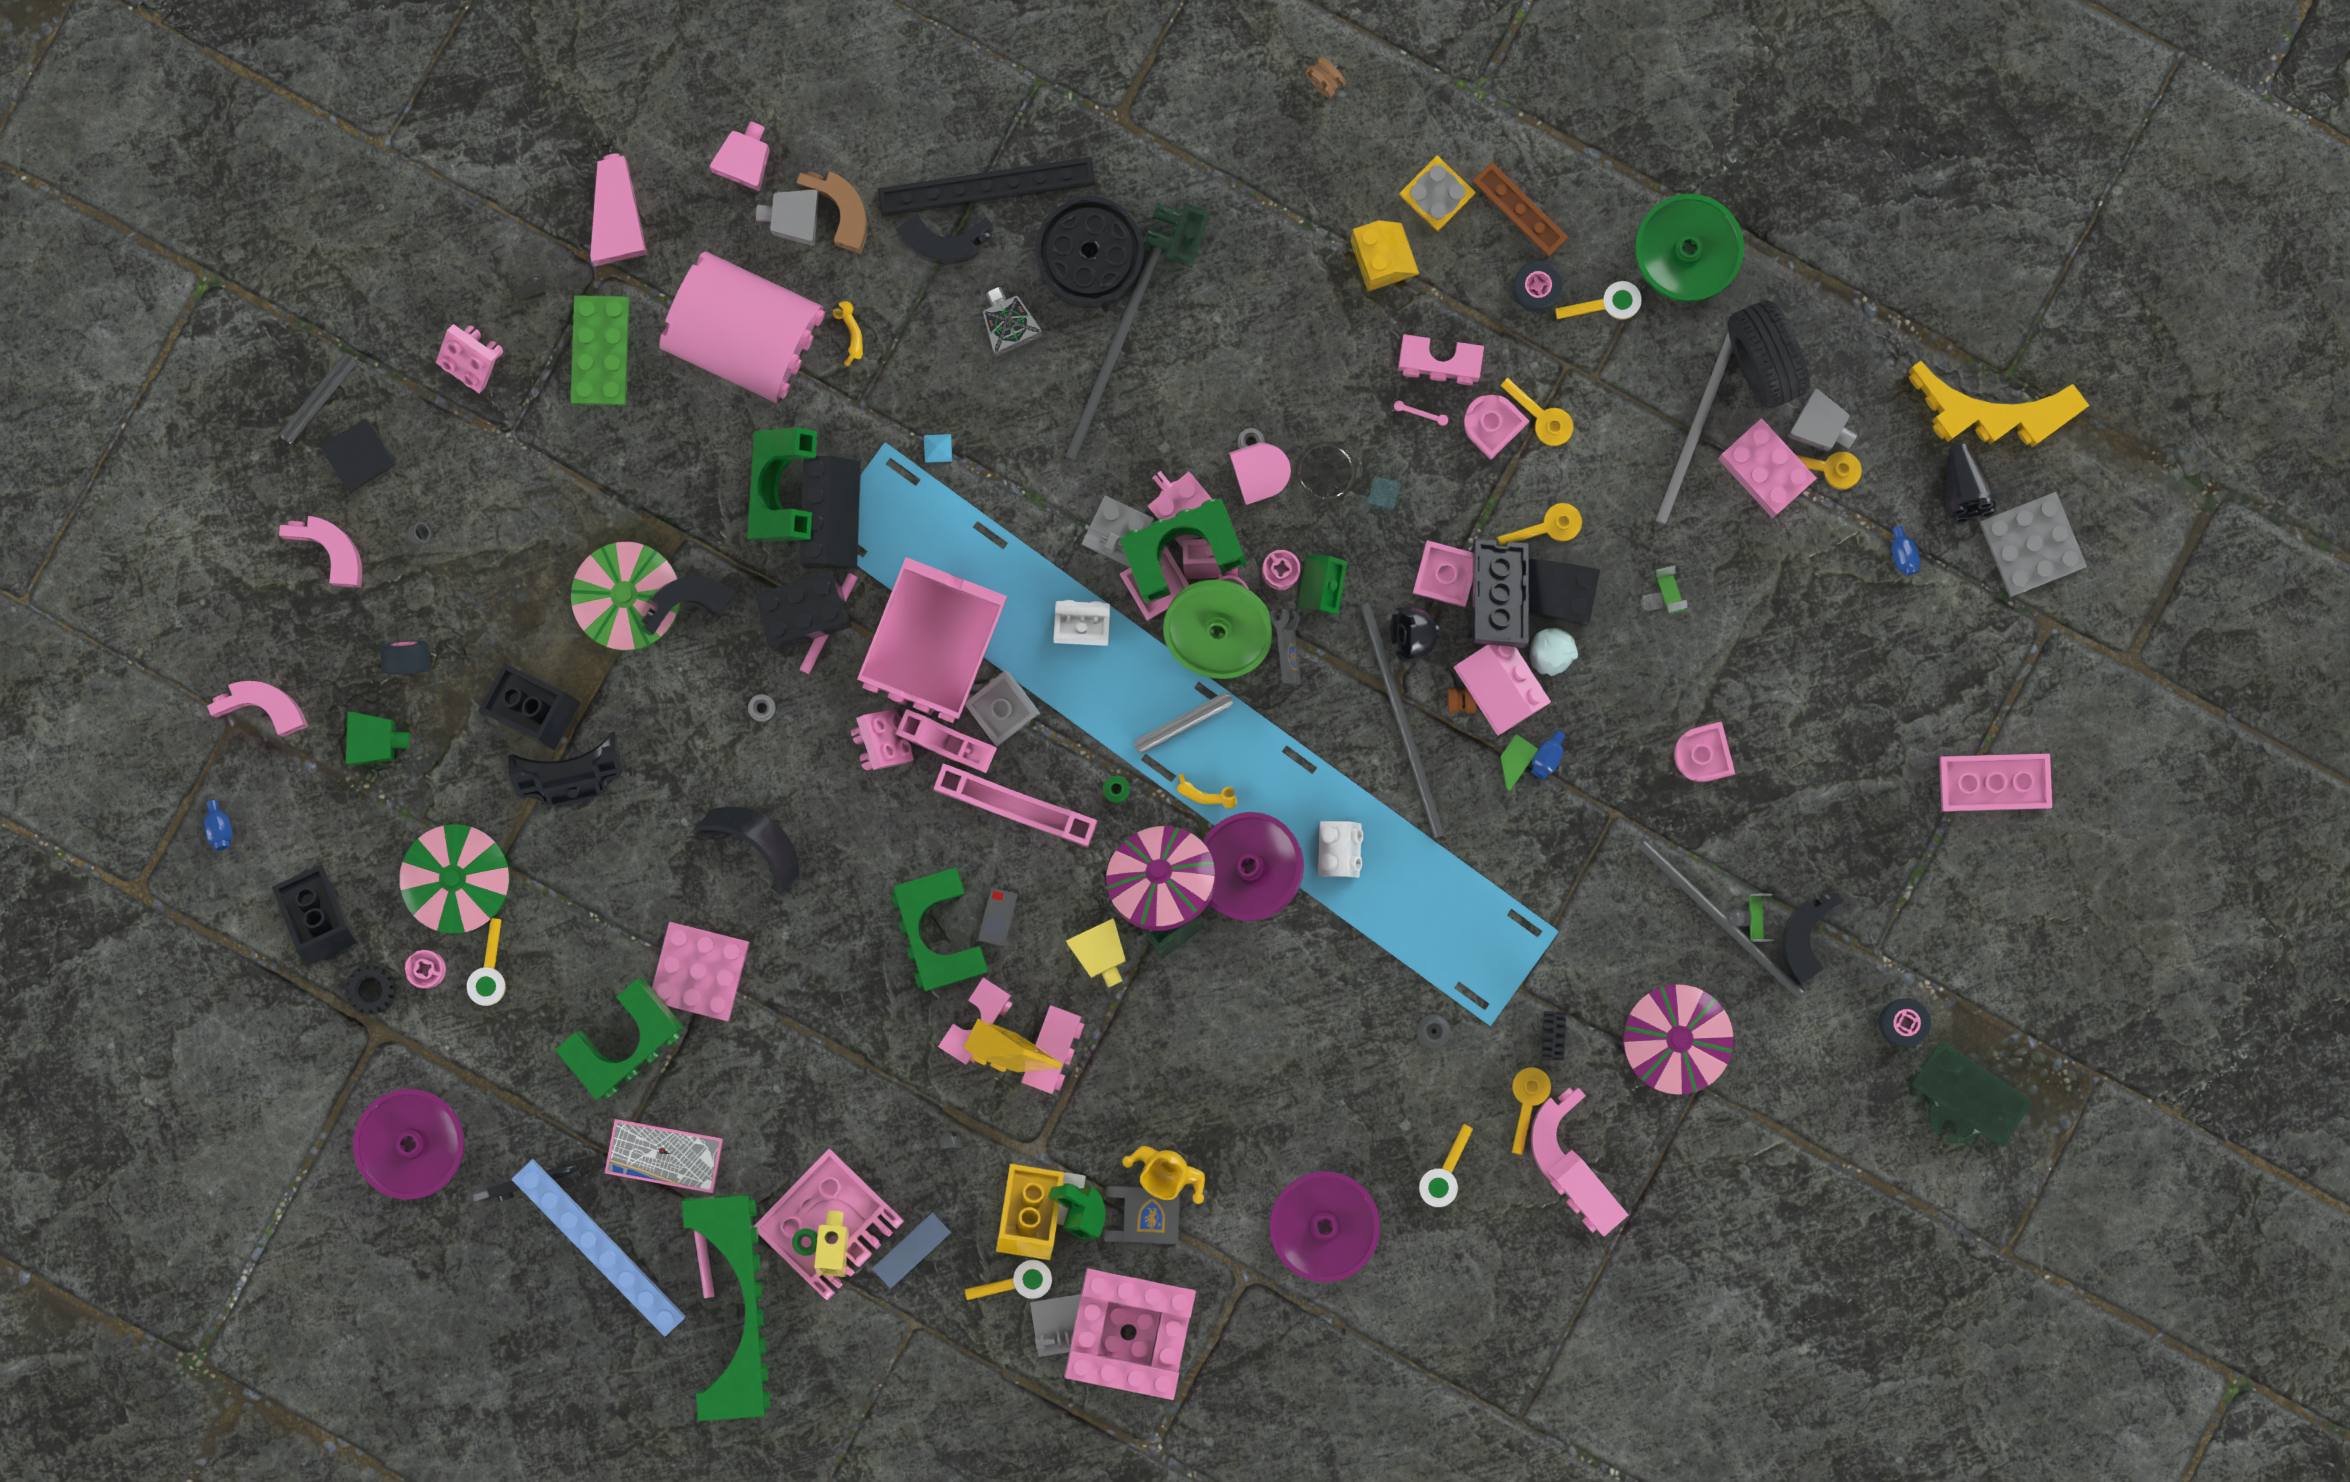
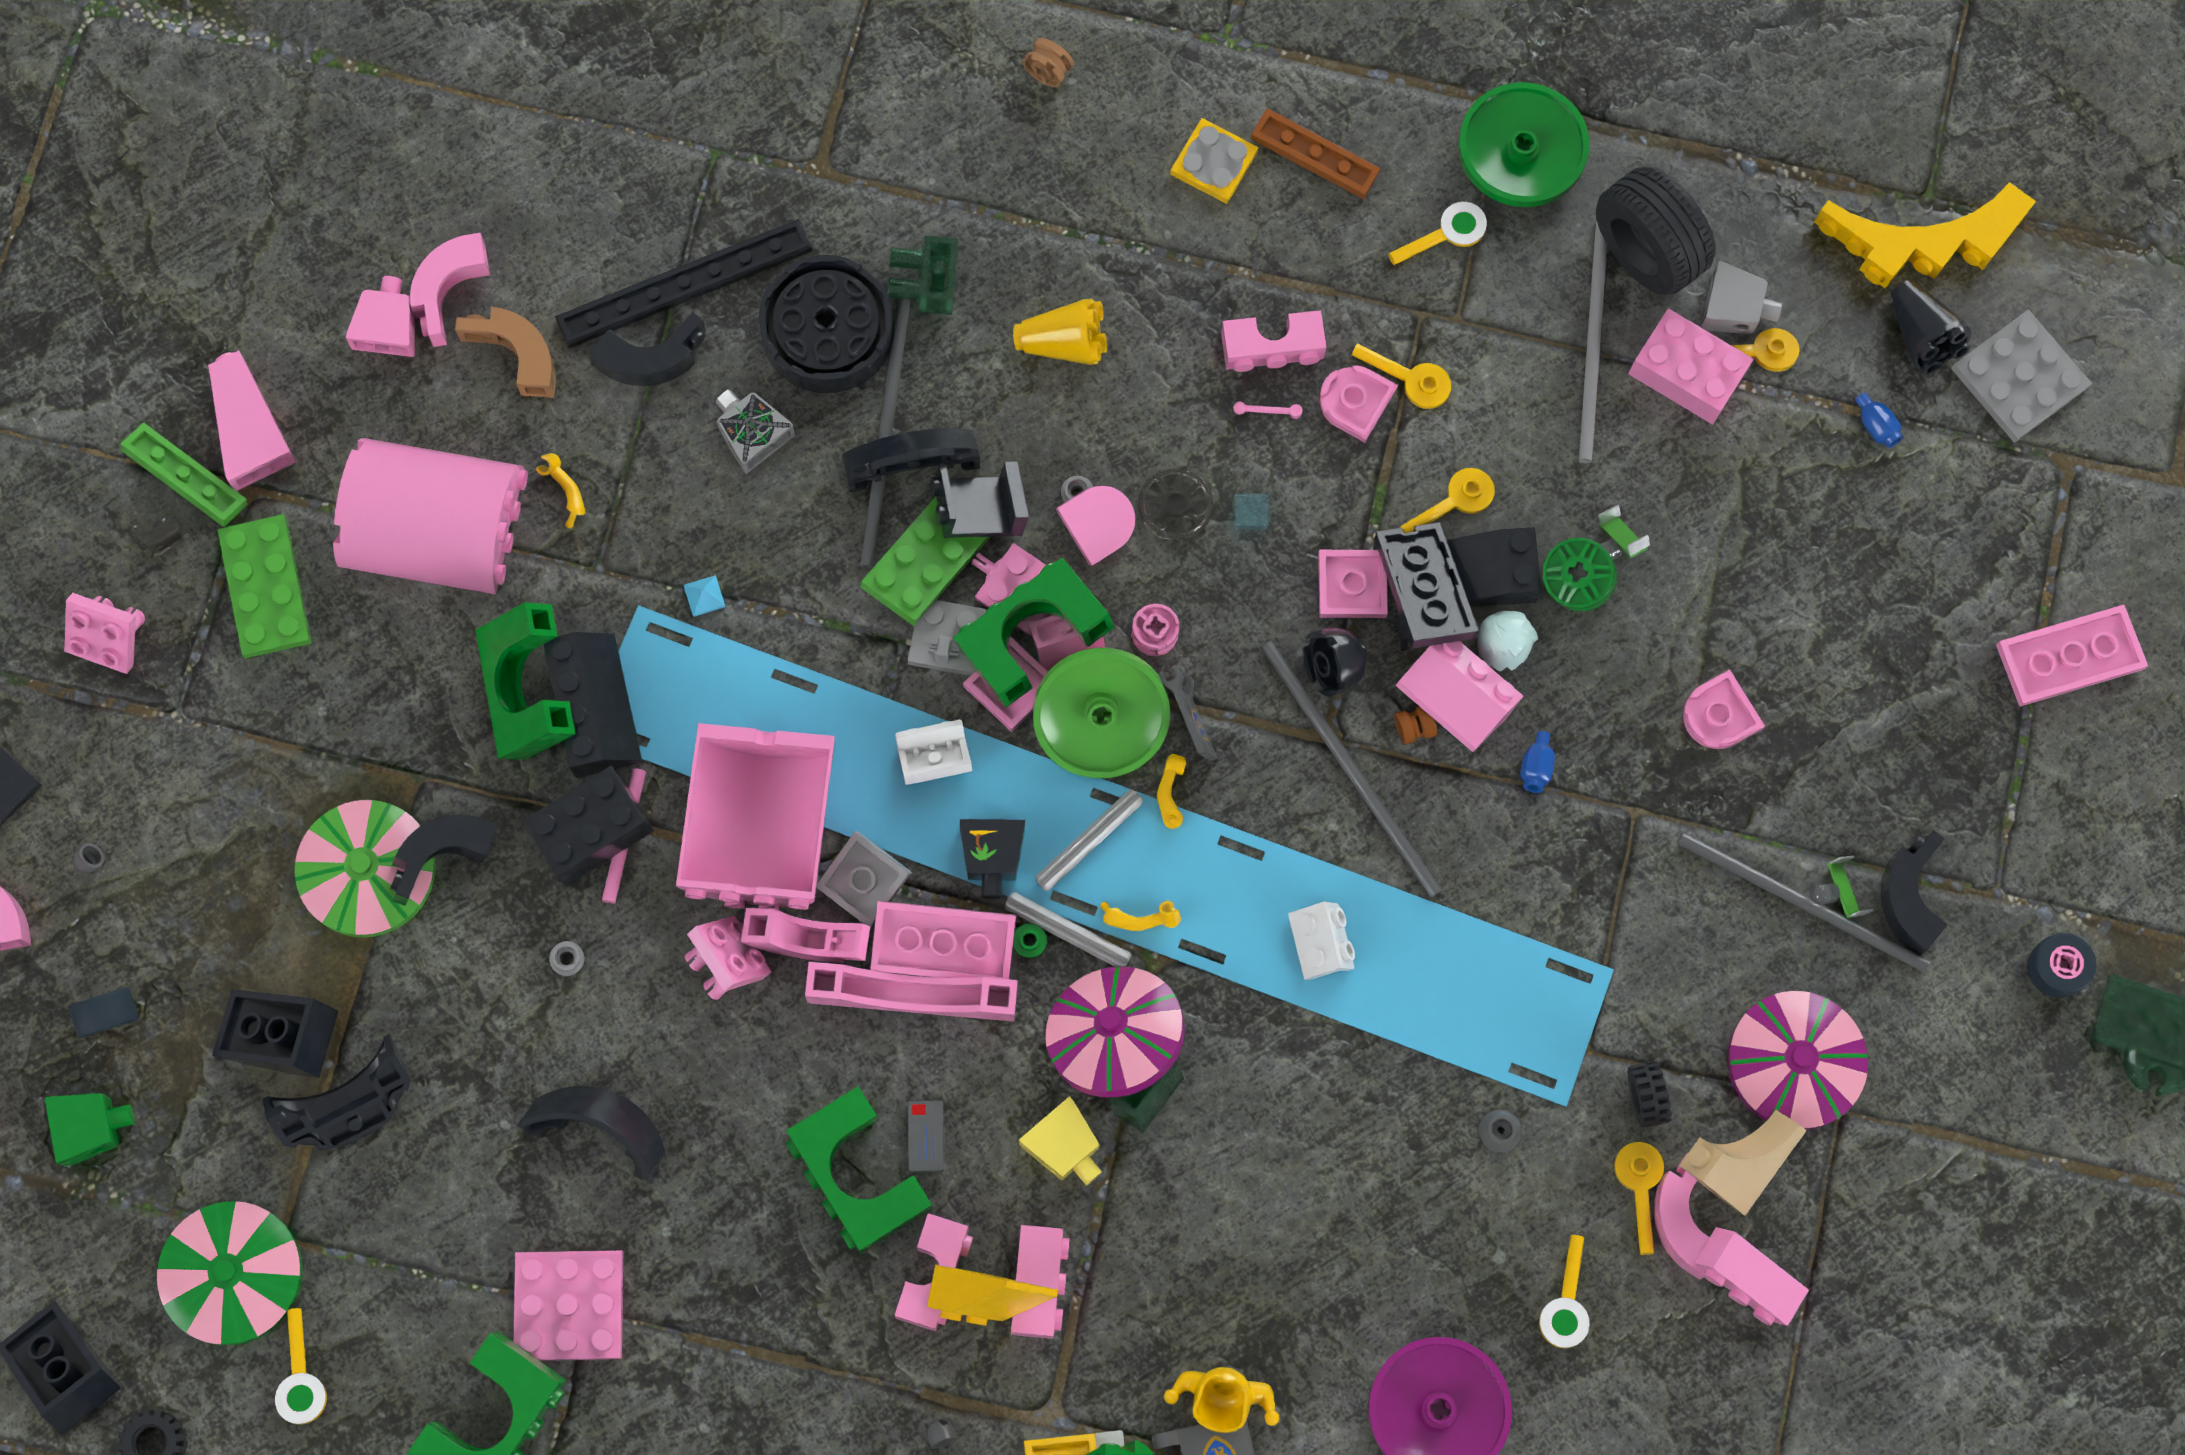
camera: 20 degrees left, 10 degrees down
(425, 969) = (217, 1397): bright pink wheel -> none
(558, 244) = (183, 474): none -> bright green plate
(792, 215) = (460, 371): light grey torso -> none
(795, 128) = (440, 271): none -> bright pink arch
(1049, 773) = (941, 941): none -> bright pink plate
(1106, 713) = (992, 852): none -> black torso
(1119, 465) = (919, 567): none -> bright green plate
(1127, 378) = (910, 452): none -> black windscreen
(1147, 789) = (1067, 930): none -> light grey axle
(1170, 433) = (980, 504): none -> panel
(1252, 719) = (1169, 811): none -> yellow piece
(1255, 866) = (1226, 985): magenta dish -> none
(1276, 310) = (1065, 333): none -> yellow cone
(1322, 583) = (1208, 633): green panel -> none
(1383, 254) = (1169, 239): yellow slope -> none
(1516, 759) = (1500, 778): bright green tile -> none
(1541, 278) = (1363, 220): black wheel -> none
(1608, 1111) = (1744, 1168): none -> tan arch
(1638, 611) = (1590, 591): none -> green wheel

